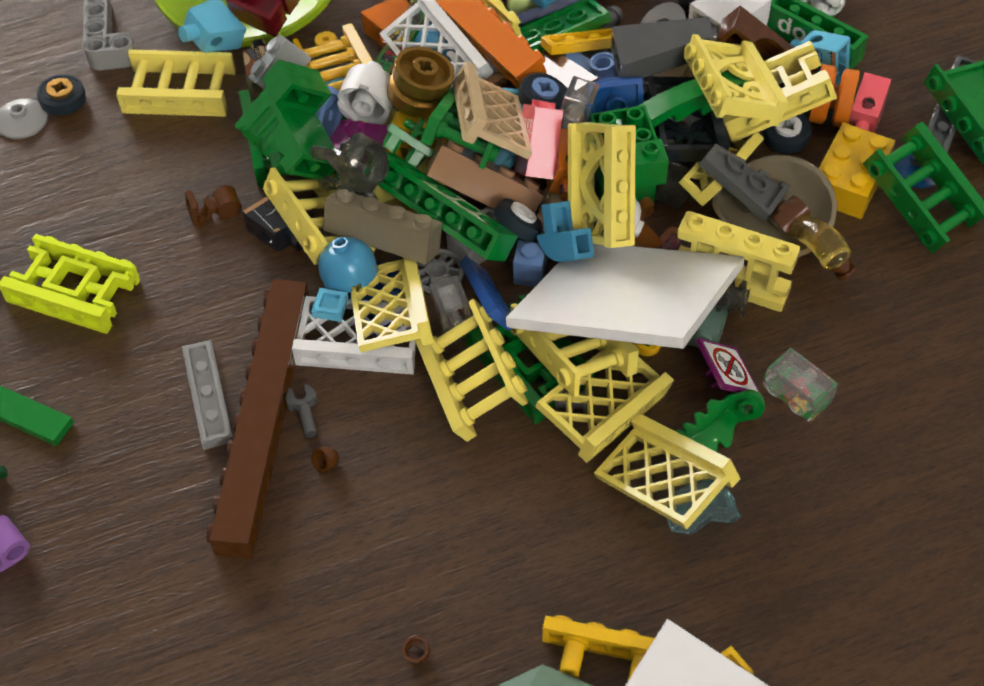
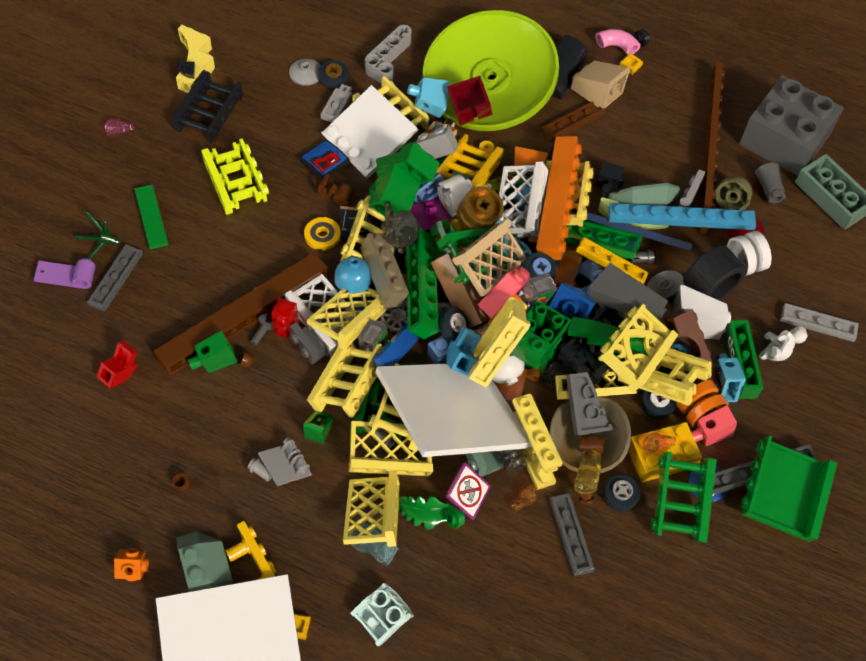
camera: 40 degrees right, 5 degrees up
(50, 513) = (115, 278): none -> dark grey tile
(103, 121) = (337, 103): none -> light grey hinge
(158, 185) = (324, 159): none -> slope
(181, 116) = (369, 130): none -> white plate
(183, 595) = (120, 367): none -> red brick
(207, 394) = (233, 281): light grey tile -> none
(245, 248) = (318, 225): none -> yellow tile
(285, 479) = (213, 353): none -> green torso
(324, 371) = (283, 316): none -> red brick
(330, 304) = (325, 288): medium azure tile -> none
(377, 379) = (308, 343): none -> dark grey bracket
(488, 551) = (259, 468): none -> light grey pin
(496, 451) = (317, 427): none -> green slope
(509, 518) = (285, 463): none -> light grey hinge
(783, 324) = (527, 496): none -> clear orange animal
(799, 568) = (382, 613): none -> light aqua slope
(800, 384) = (493, 532): clear brick -> none
(846, 159) = (655, 442): none -> clear orange animal
(865, 320) = (571, 534): none -> dark grey tile
(871, 236) = (622, 485): none -> black wheel

